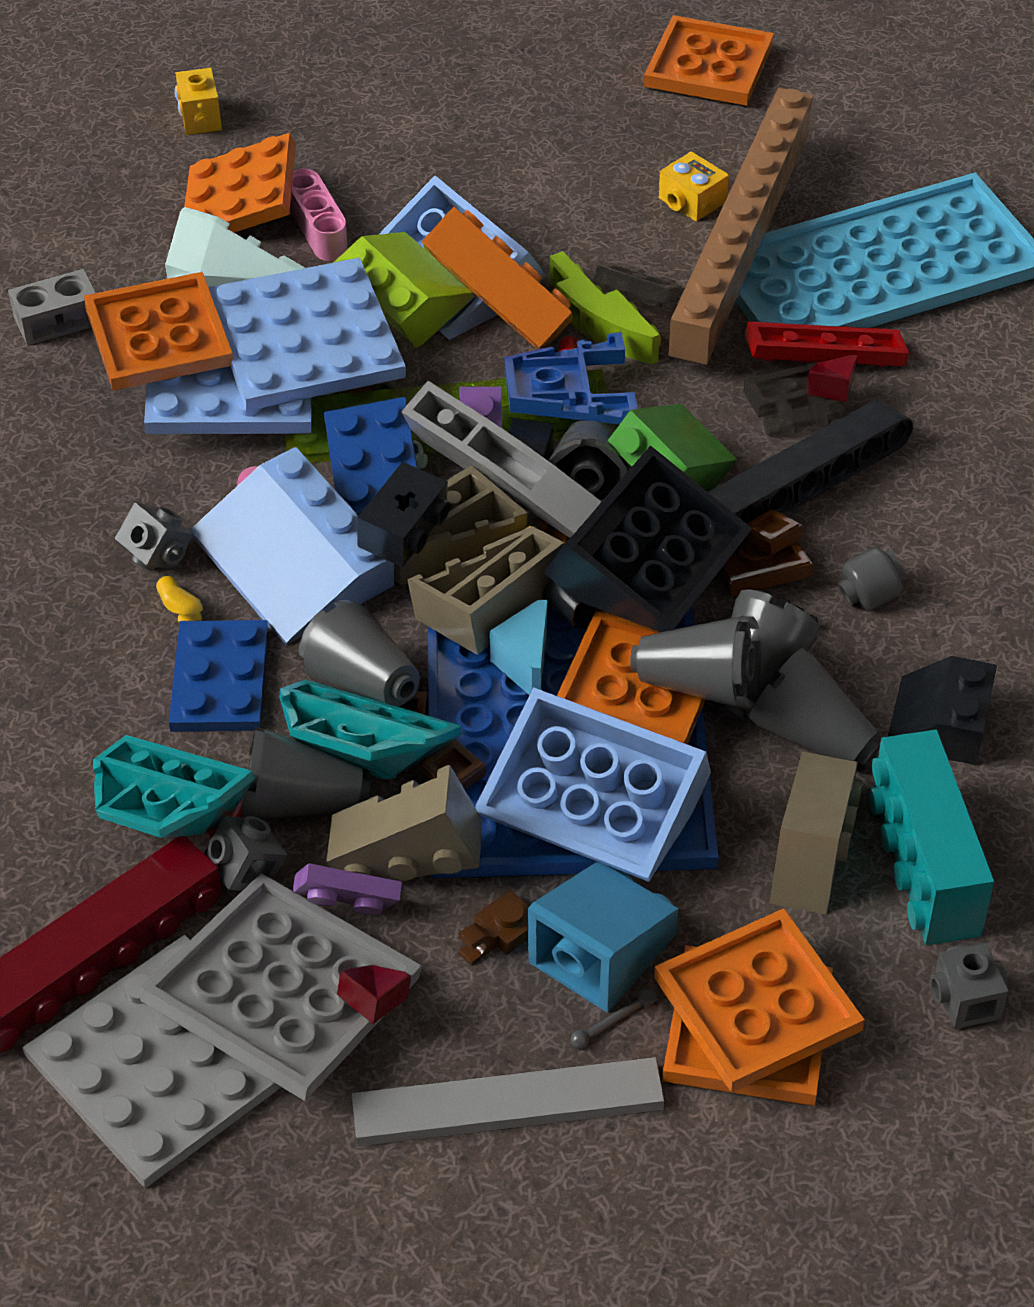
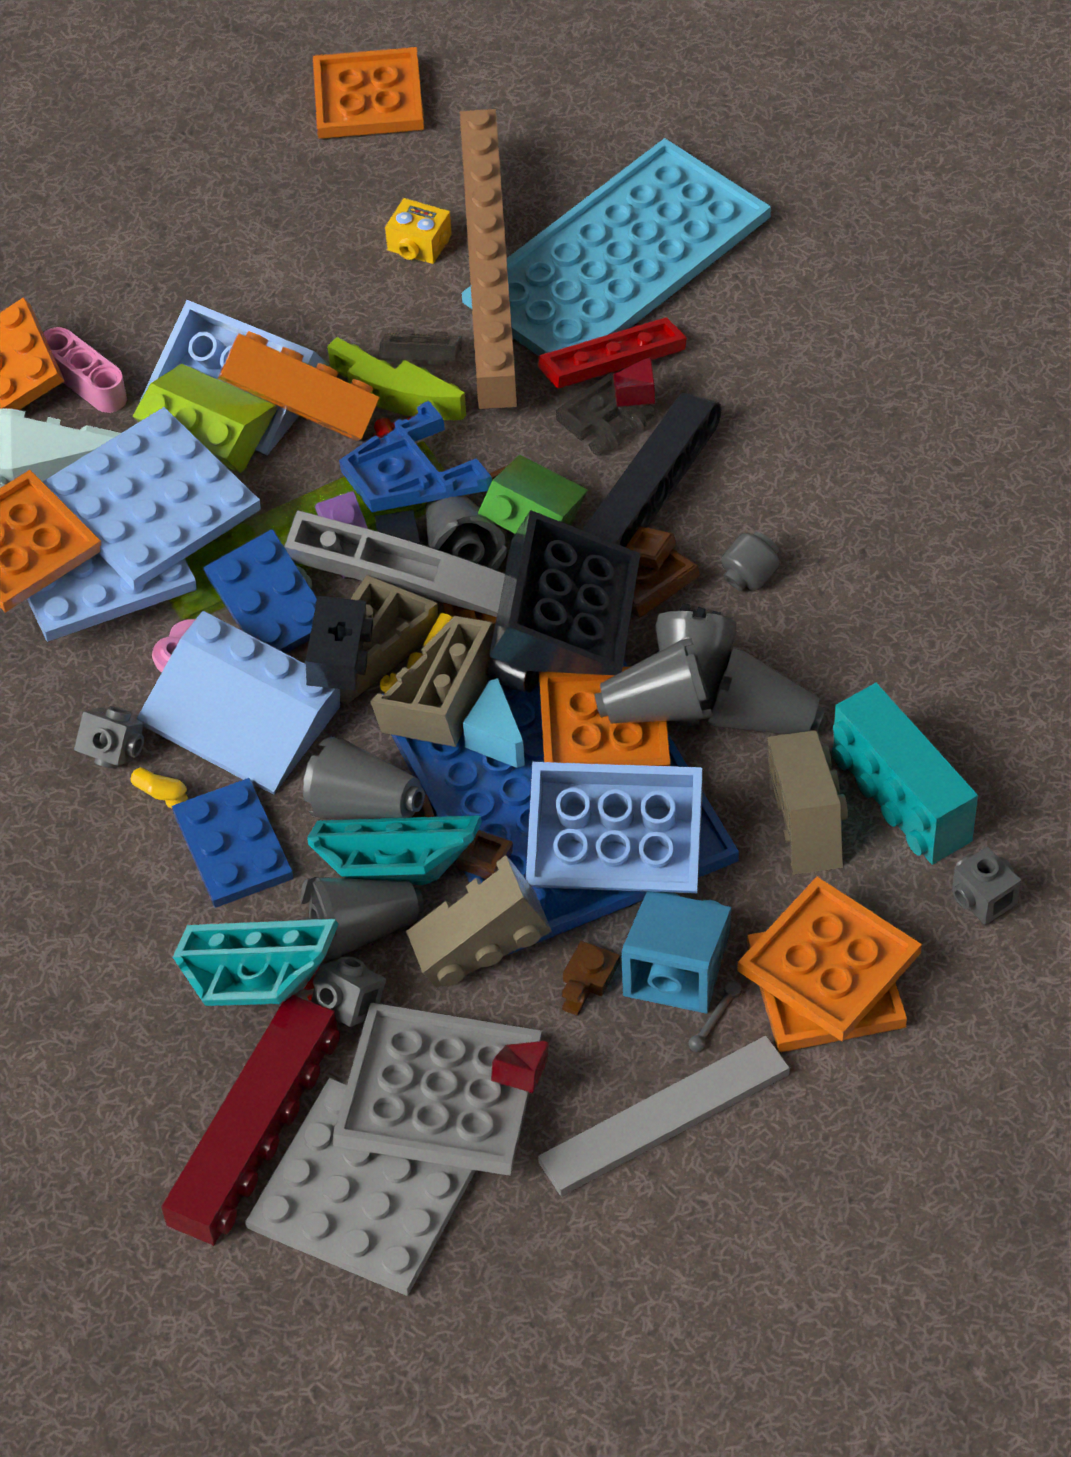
camera: 20 degrees left, 5 degrees up
(331, 885) = (436, 992): medium lavender plate -> none
(949, 699) = (858, 653): black slope -> none

